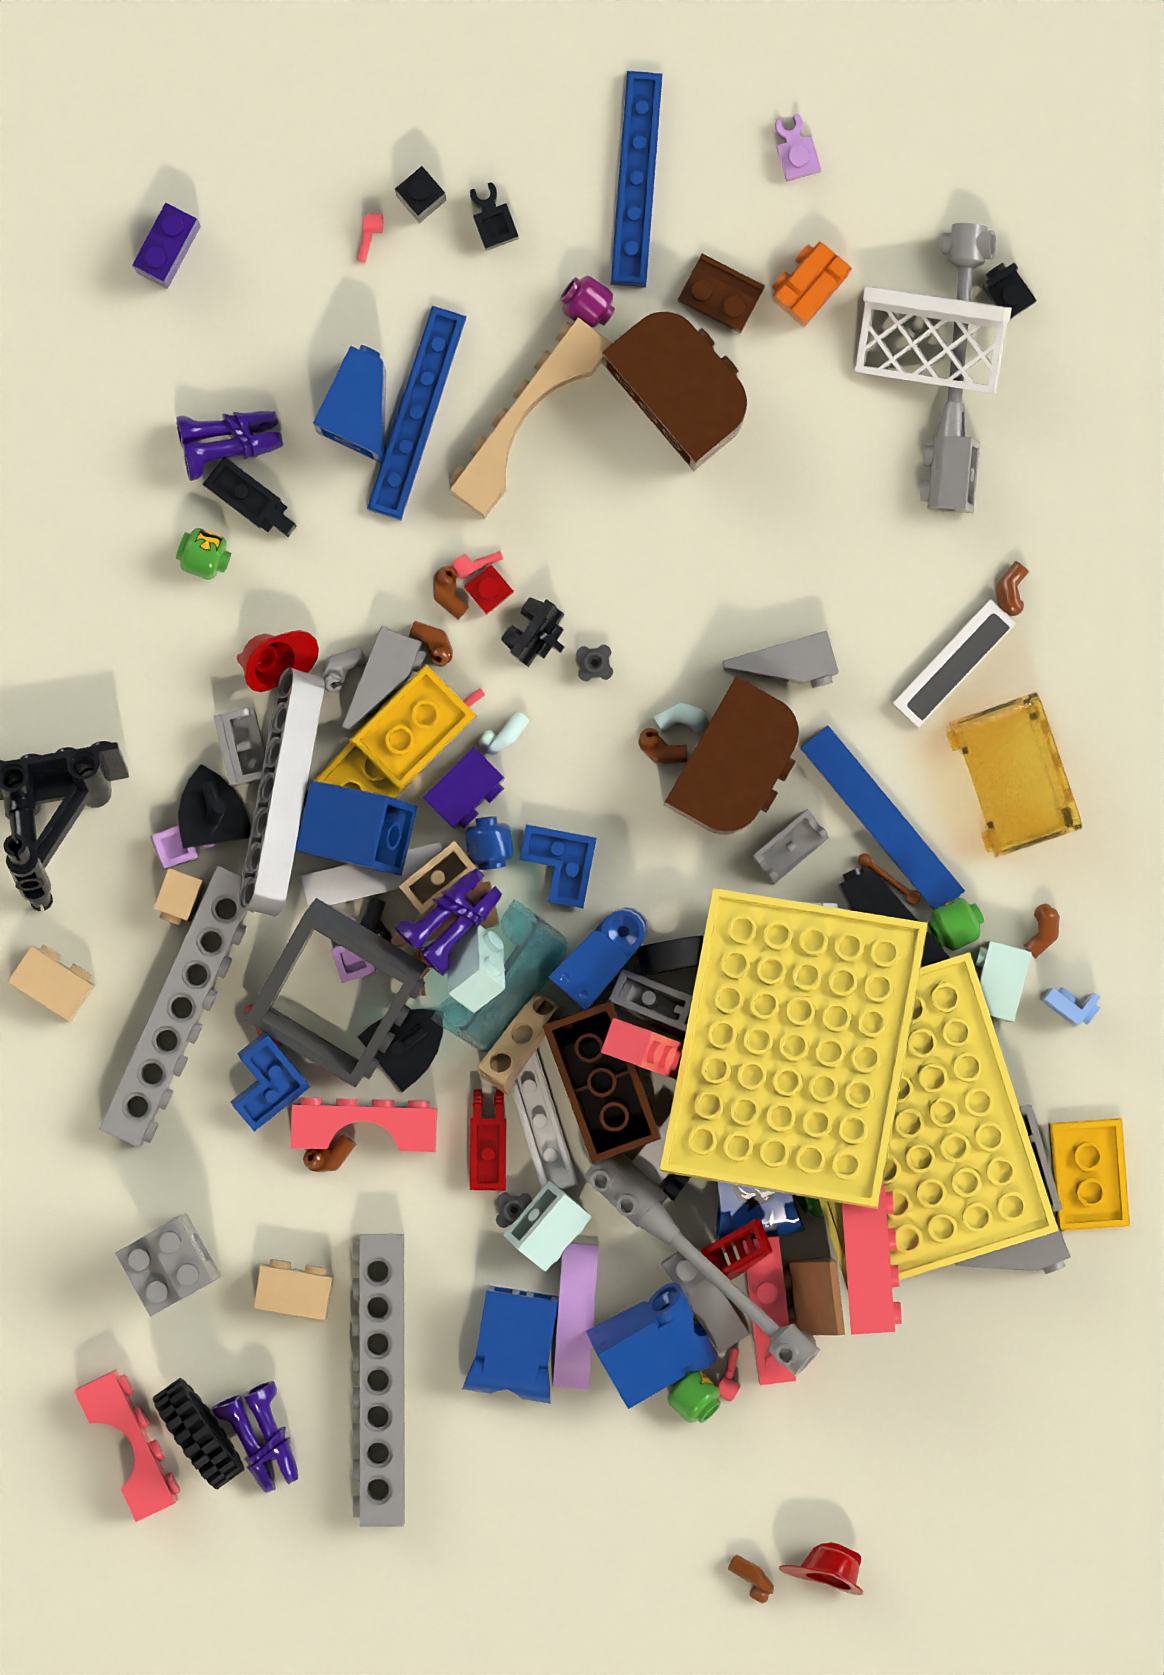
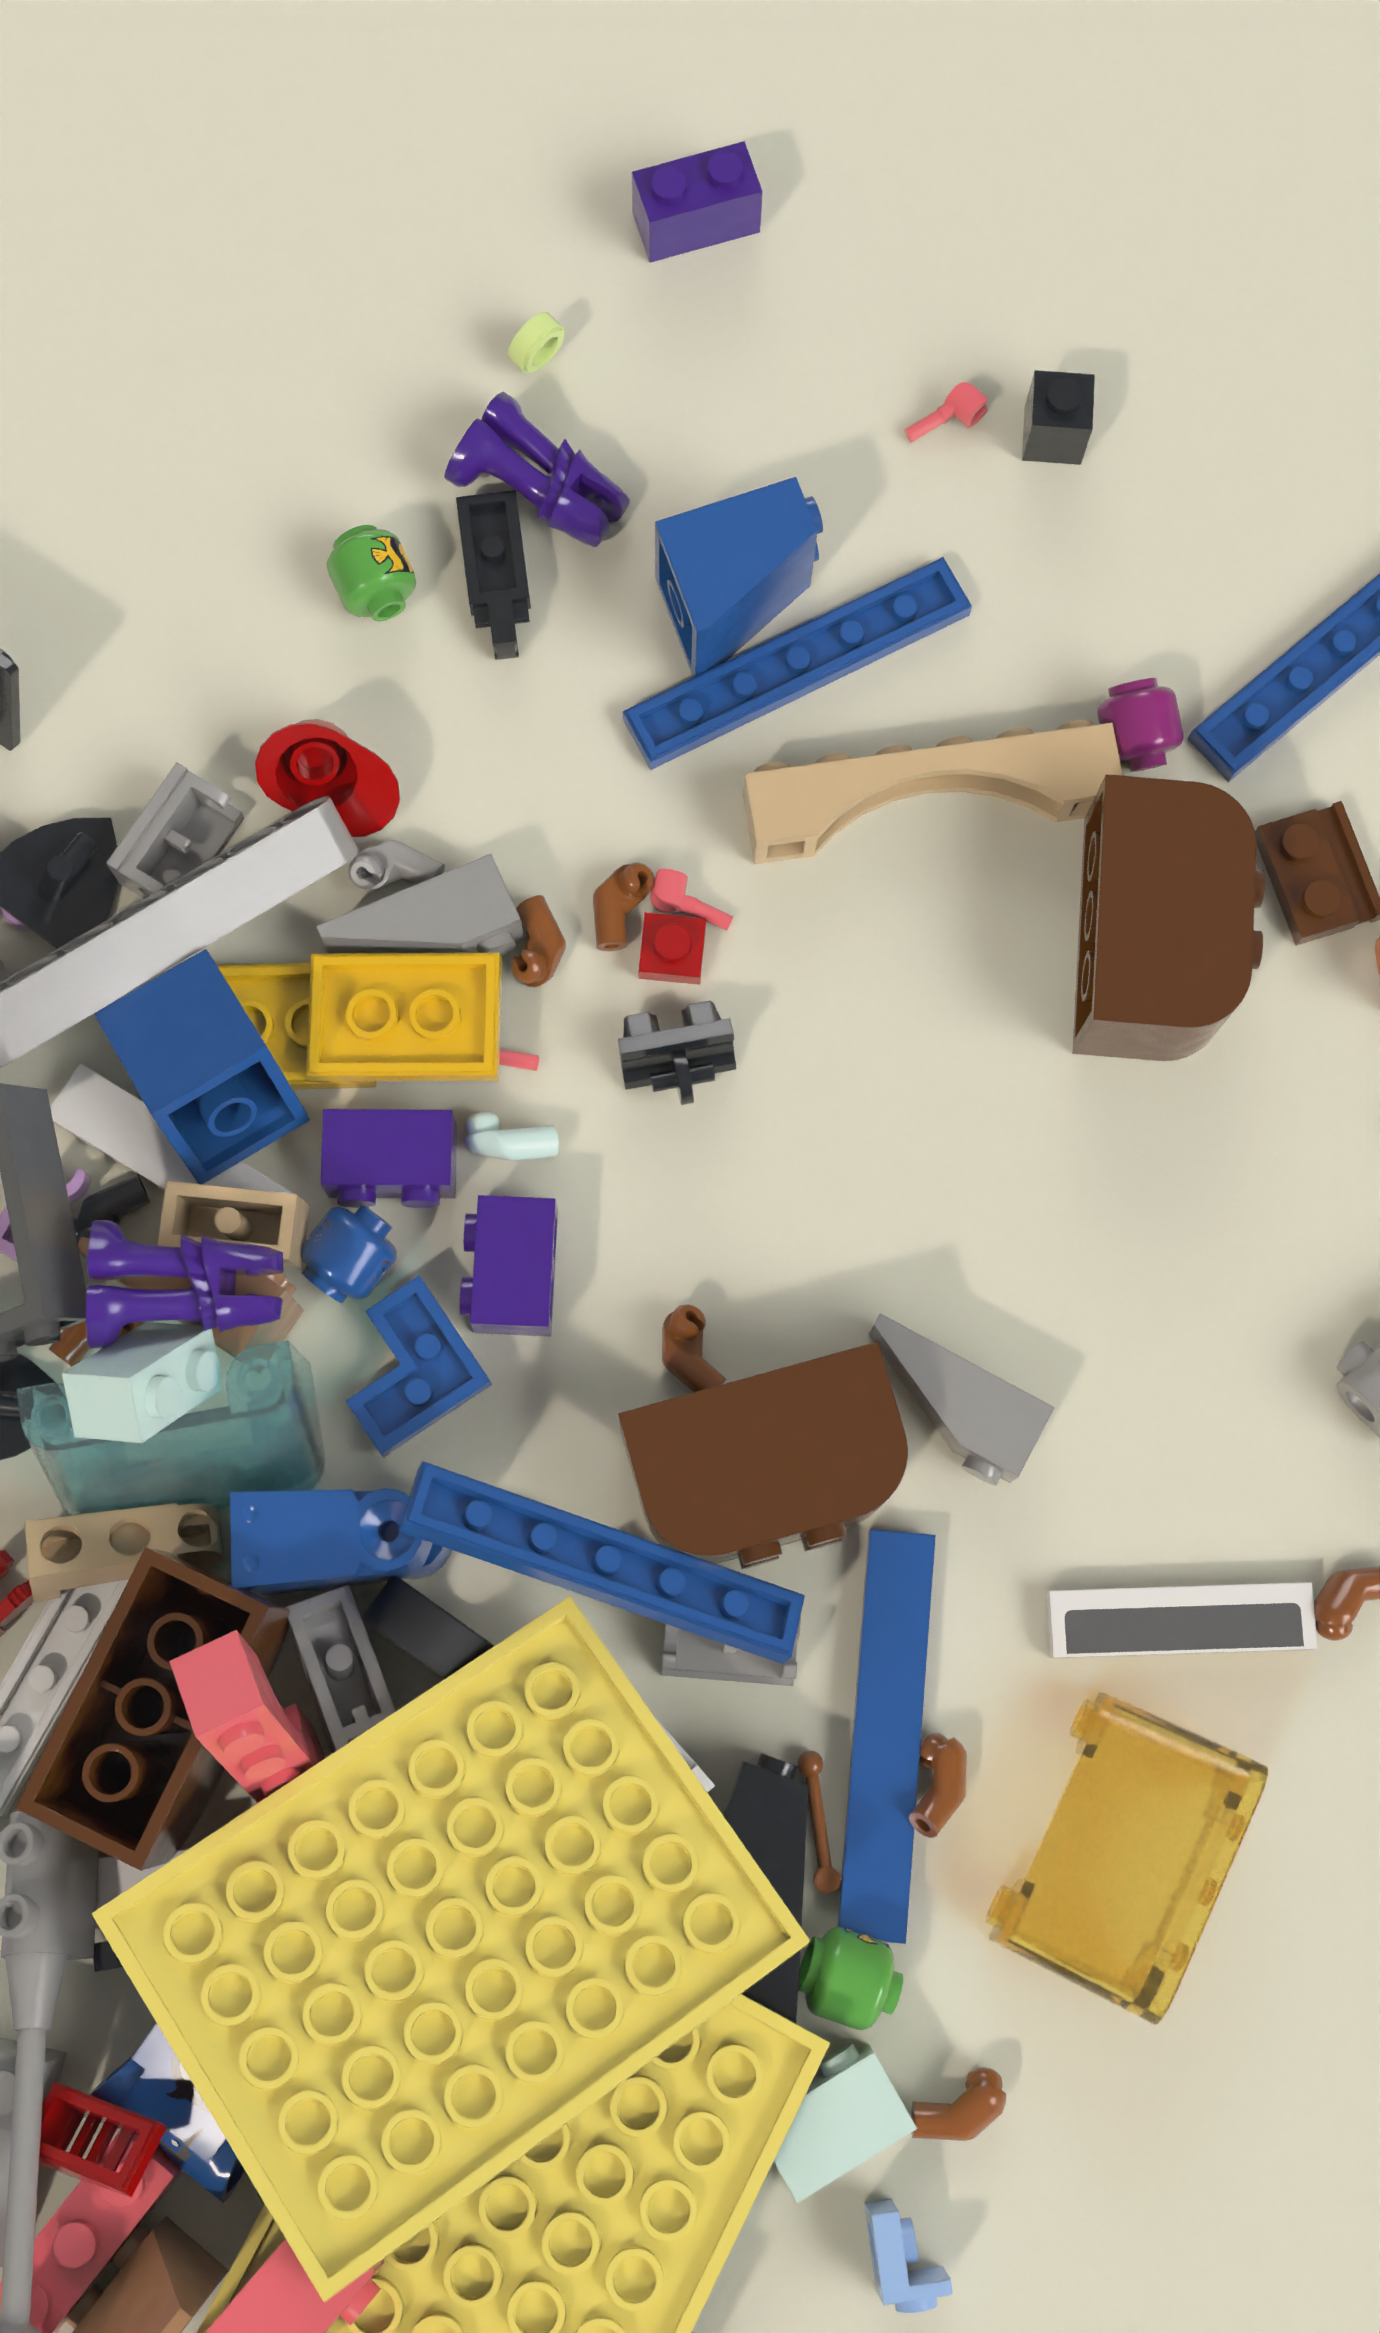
camera: 40 degrees right, 10 degrees down
(163, 380) = (536, 343): none -> yellowish green tile
(494, 221) = (1116, 529): black plate -> none
(558, 784) = (512, 1265): none -> dark purple brick
(600, 654) = (714, 1180): dark grey plate -> none
(685, 714) = (758, 1332): light aqua arm -> none
(715, 863) = (602, 1563): none -> blue tile
(925, 816) = (948, 1787): none -> dark orange arm

